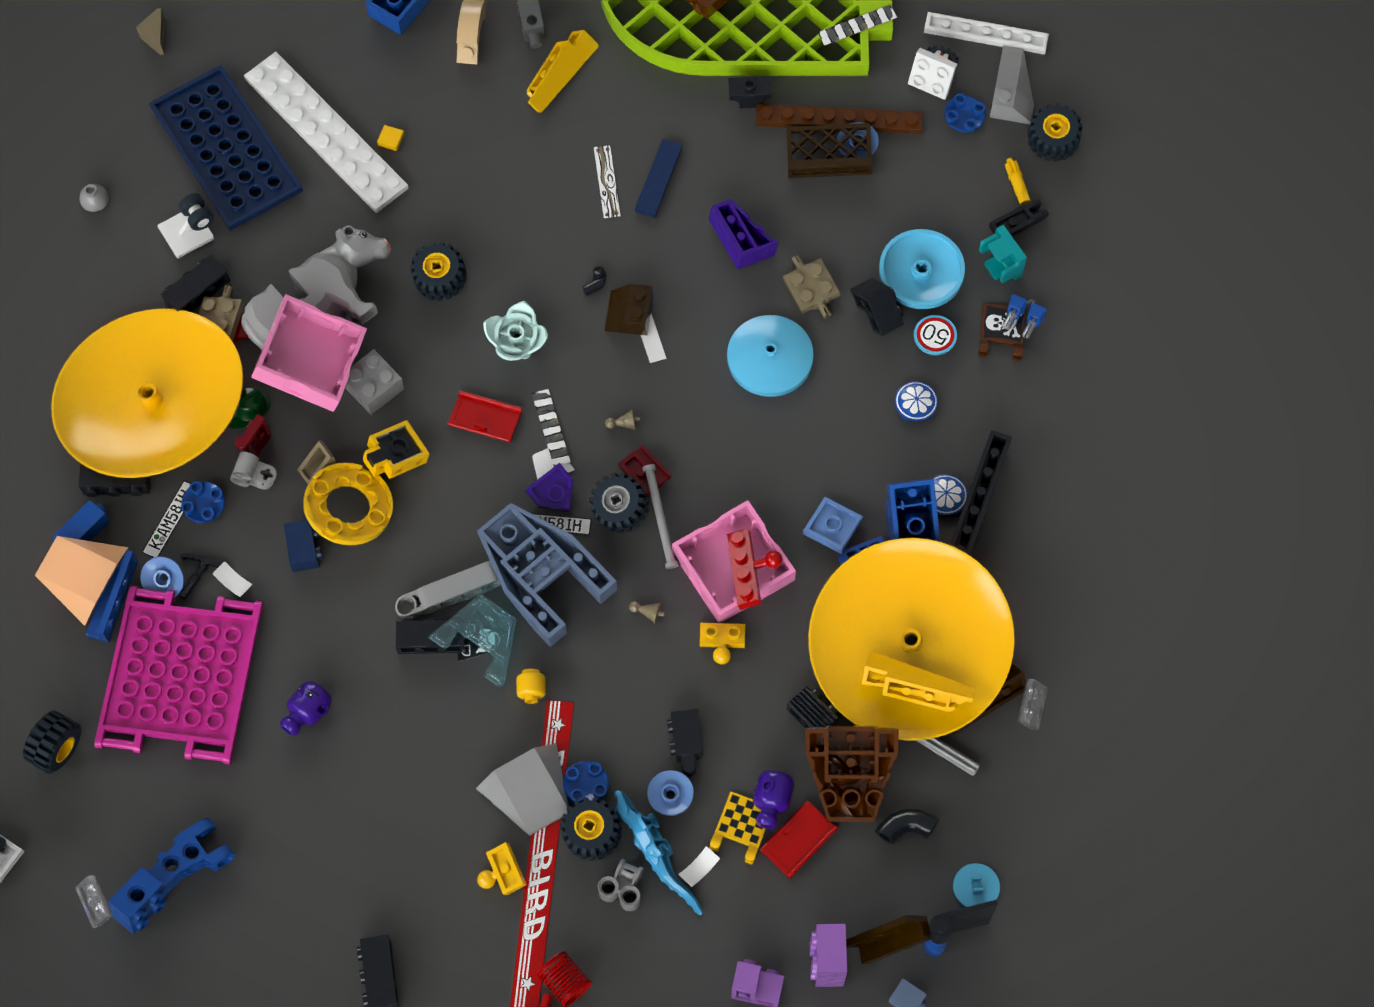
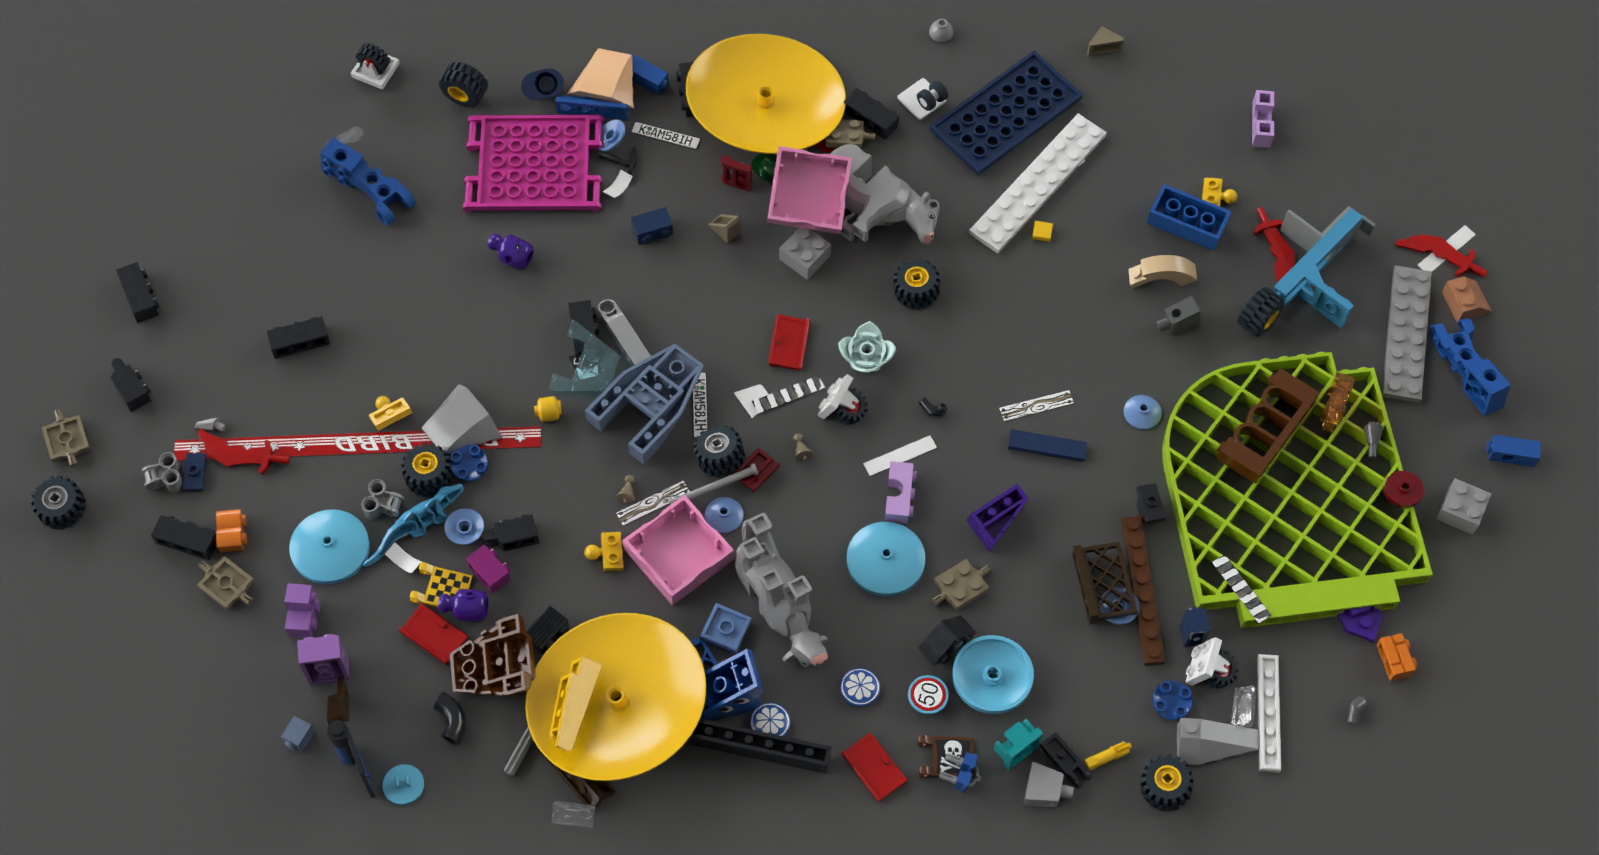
camera: 80 degrees right, 5 degrees down
(70, 648) = (542, 84): none -> dark blue piece
(203, 502) = (681, 152): blue dish -> none
(250, 471) = (709, 177): light grey piece -> none
(353, 476) = (694, 225): yellow plate -> none
(395, 451) = (743, 276): piece -> none
(552, 489) = (727, 401): dark purple plate -> none
(560, 67) = (1140, 350): yellow wedge -> none
(576, 368) = (844, 402): none -> plate
(577, 991) = (289, 473): red piece -> none
(630, 309) = (908, 439): dark brown slope -> none
(632, 89) = (1142, 419): none -> medium blue dish
(665, 587) = (651, 503): none -> sticker
(676, 973) = (329, 546): none -> medium azure dish
(680, 321) = (900, 477): none -> lavender arch
(689, 522) = (724, 522): none -> medium blue dish
(729, 768) = (489, 568): none -> magenta brick
(745, 567) = (670, 555): red plate -> none
(815, 455) = (781, 596): none -> light grey animal
(893, 74) = (1194, 627): none -> dark blue brick
(980, 51) = (1244, 706): none -> clear plate
(1014, 398) = (869, 763): none -> red door
(1047, 243) = (1045, 787): none -> light grey torso

